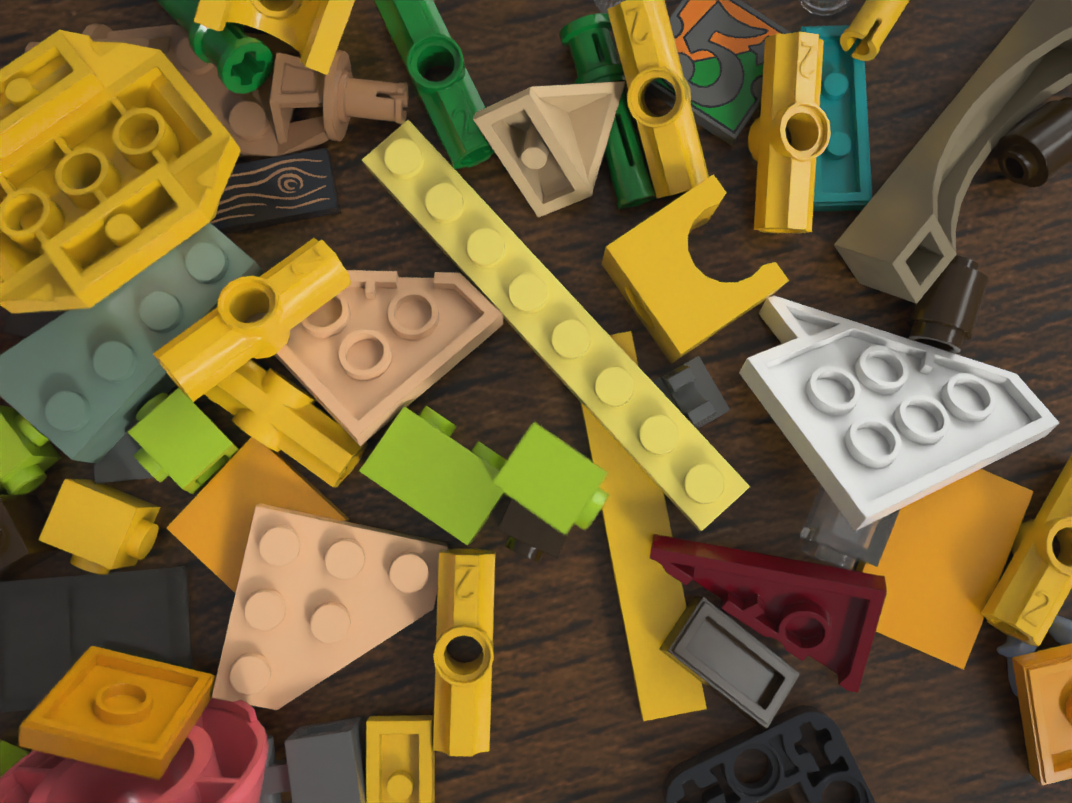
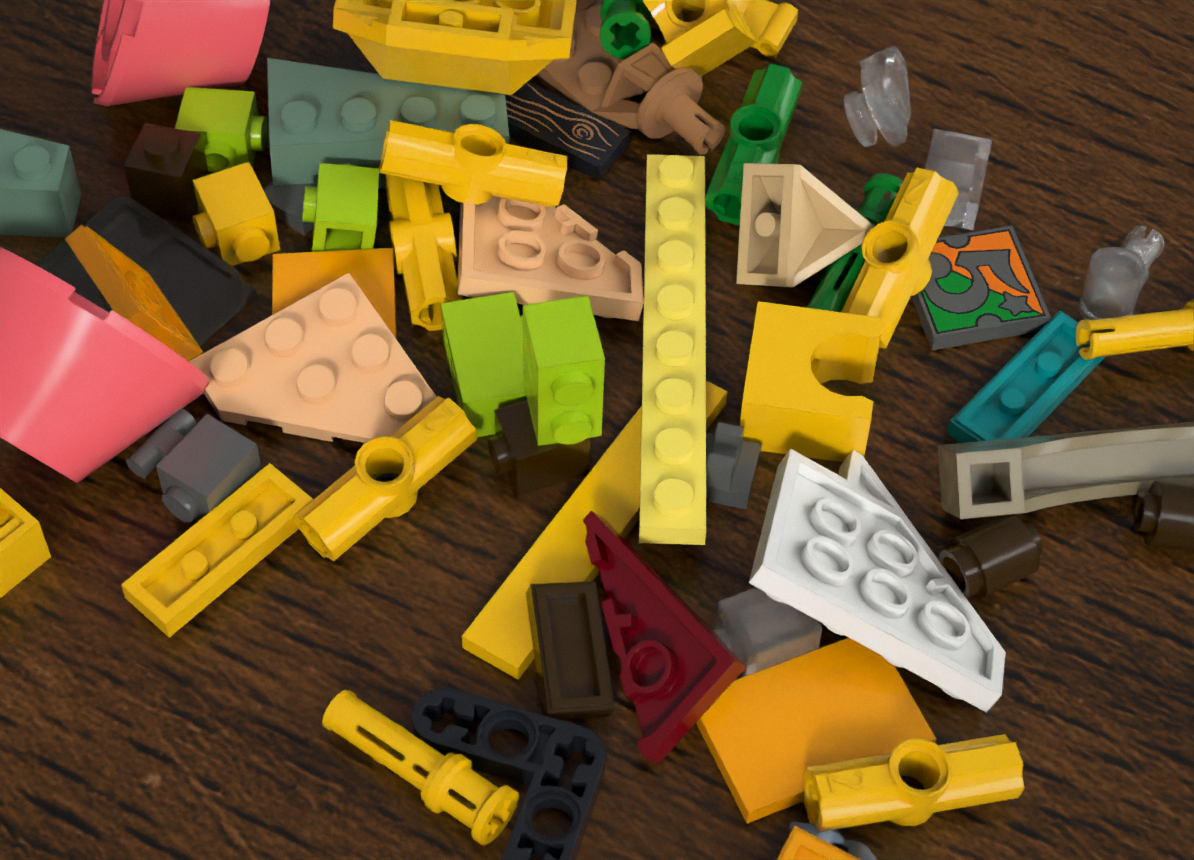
camera: 40 degrees right, 30 degrees down
(792, 101) = (950, 378): yellow piece -> none

